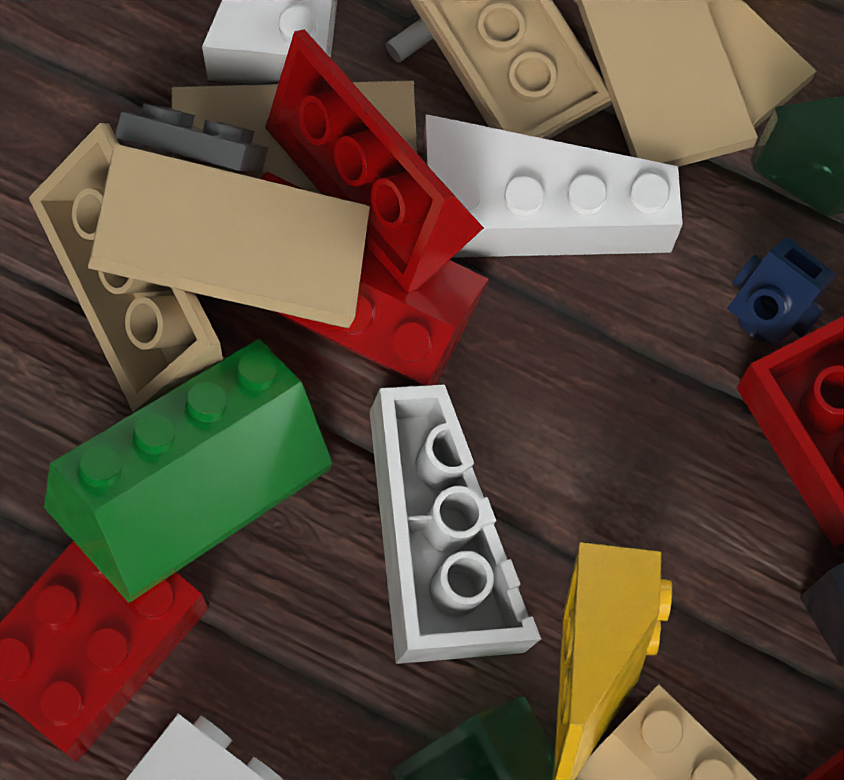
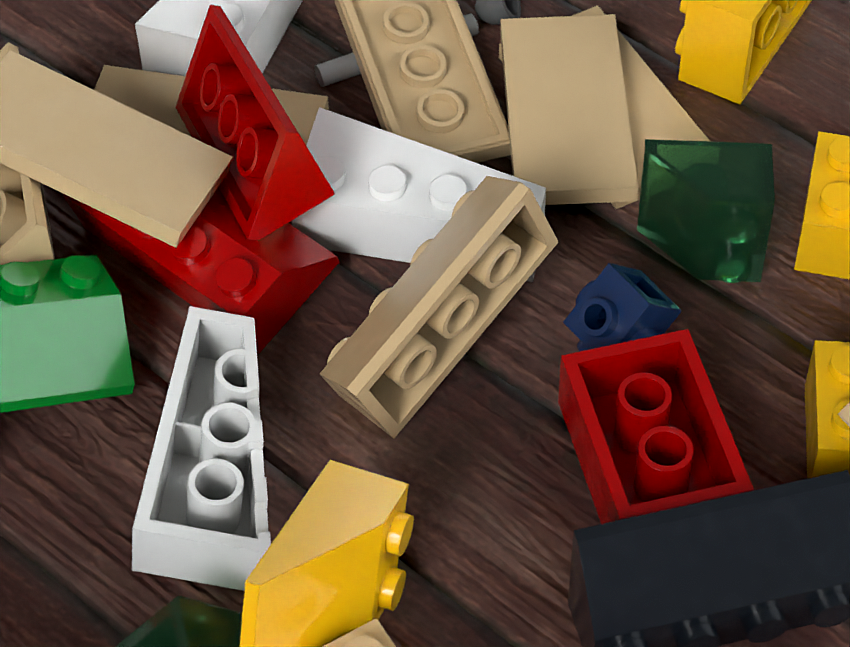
camera: 20 degrees right, 20 degrees down
(173, 132) = (108, 78): dark grey plate -> none
(614, 328) = (441, 303): none -> tan slope

